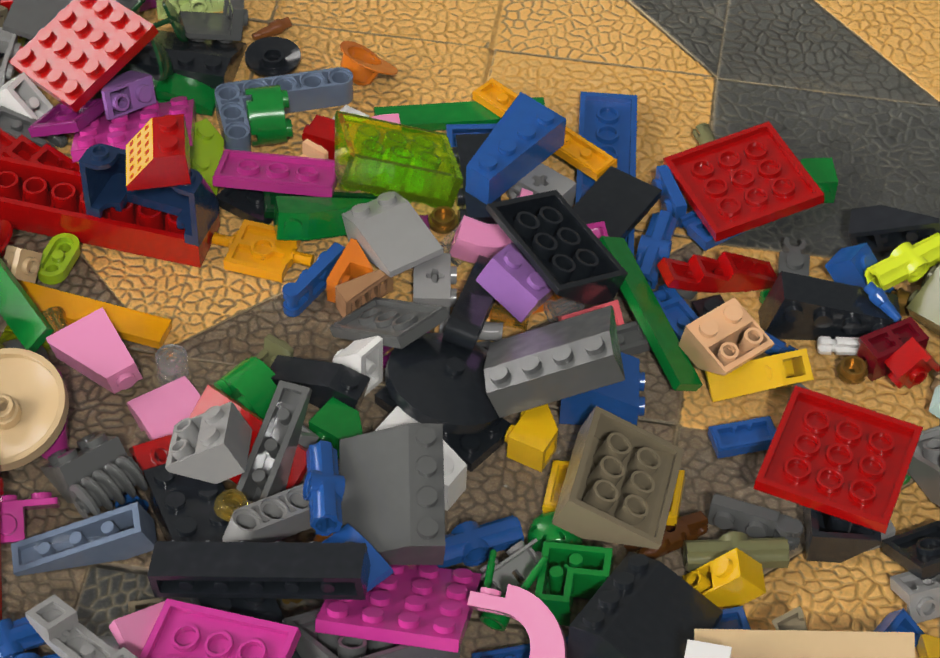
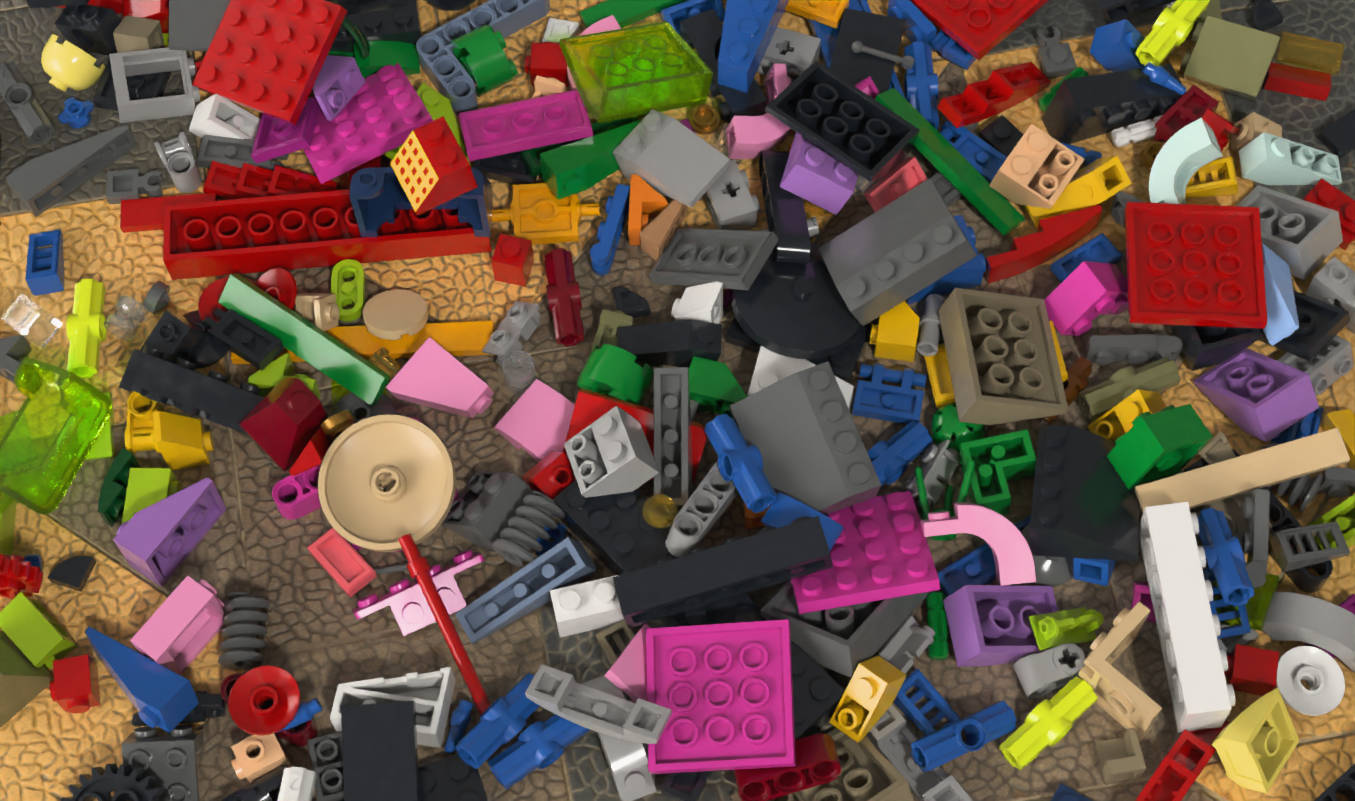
camera: 15 degrees left, 15 degrees up
(88, 287) = (395, 314): none -> tan tile
(123, 573) = (586, 606): none -> white brick
(195, 327) = (519, 322): none -> light grey hinge
(213, 276) = (512, 260): none -> red brick
(243, 320) = (564, 297): none -> dark red piece
(303, 345) = (630, 302): none -> black tile
(499, 495) = (887, 401): none -> blue plate
(564, 446) = (930, 326): none -> light grey pin
(646, 222) = (907, 61): none -> dark grey hinge
(702, 410) = (1052, 238): none -> red slope
(722, 458) = (1085, 294): none -> dark pink brick
(733, 597) = (1158, 445): none -> green brick
(861, 595) = (1259, 393): none -> medium lavender slope
(873, 372) = (1179, 160): none -> light aqua arch
(904, 395) = (1216, 188): none -> yellow slope
(911, 511) = (1280, 299): none -> light blue slope

